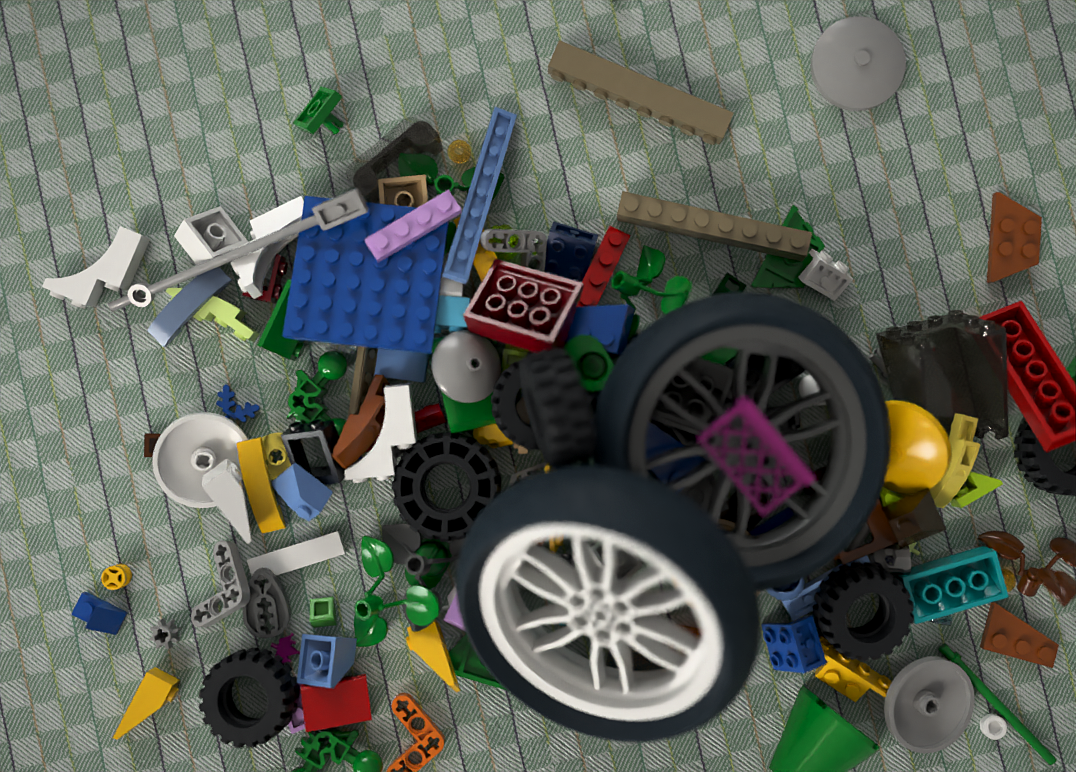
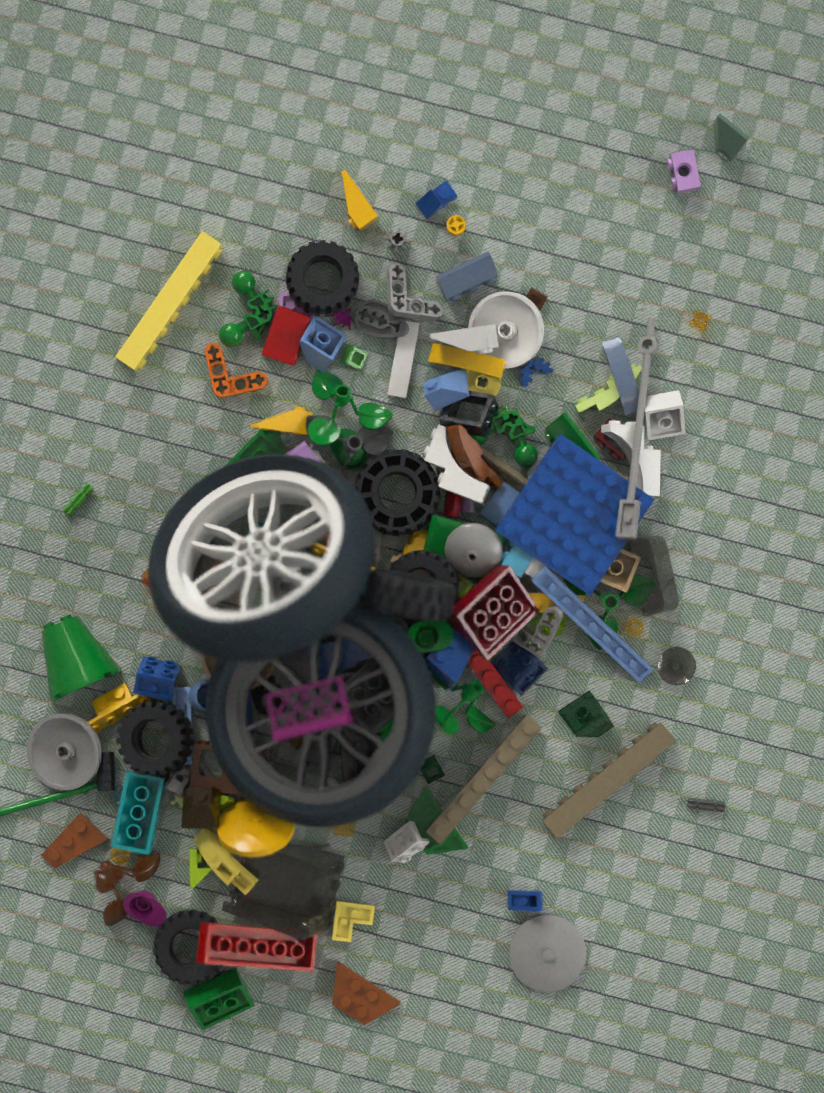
camera: 120 degrees right, 0 degrees up
(82, 248) = (702, 326): none -> clear yellow plate
(111, 271) = (677, 335): white arch -> none
(165, 534) = (467, 277): none -> sand blue slope
(319, 112) = (714, 540): green tile -> none
(413, 226) = (591, 564): lavender plate -> none
(422, 400) = (467, 506): none -> lavender slope
(473, 73) = (683, 658): none -> clear smoke dish
(584, 151) = (586, 717): none -> clear green slope
(816, 112) = (525, 900): none -> blue slope
(923, 644) = (106, 772): none -> black axle
(934, 297) = (347, 914): none -> light yellow plate
(993, 726) = (21, 791): white tile -> none
(1048, 522) = (145, 908): none -> magenta piece

